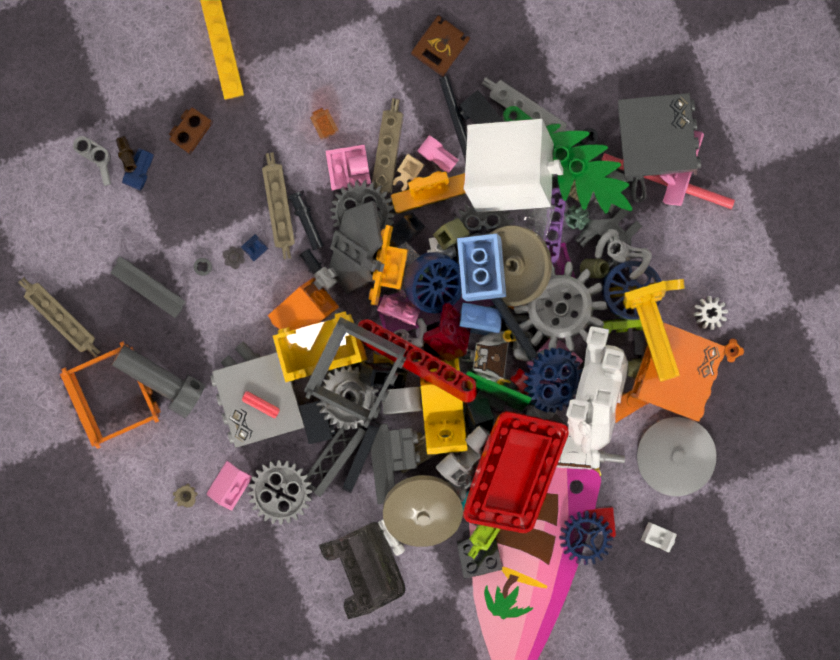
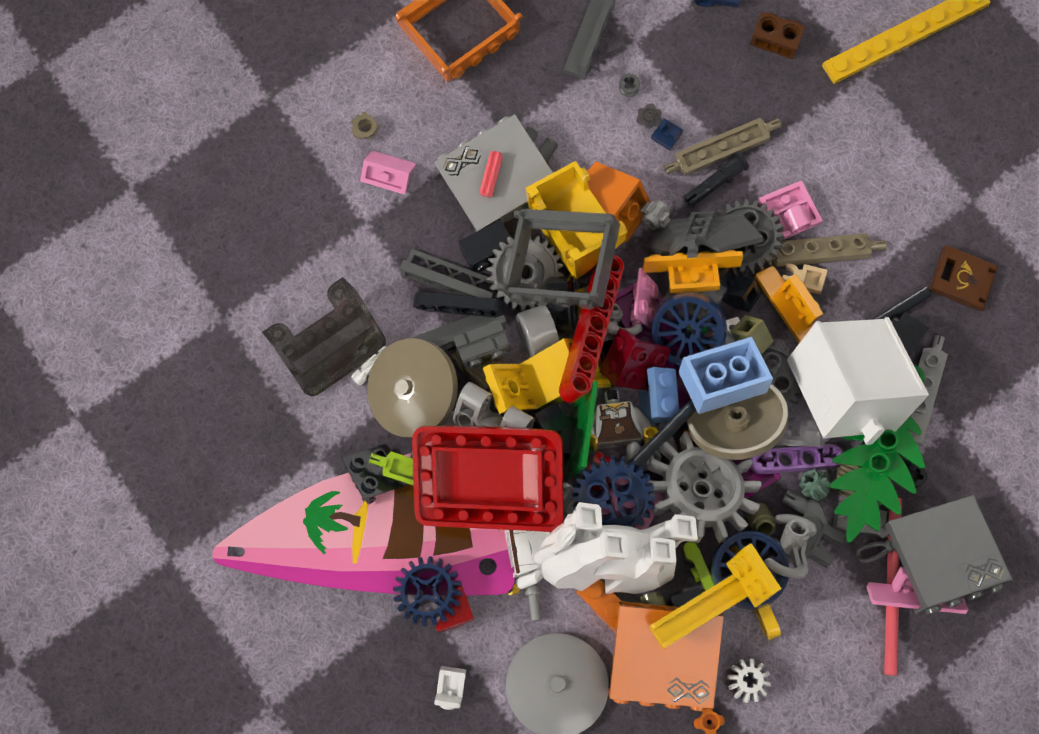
camera: 70 degrees right, 15 degrees down
(181, 393) = (481, 90): dark grey piece -> none
(272, 508) = (374, 223): light grey gear -> none
(310, 261) = (671, 194): black pin -> none
(324, 123) = (831, 172): clear orange brick -> none
(434, 151) = (839, 300): bright pink piece -> none

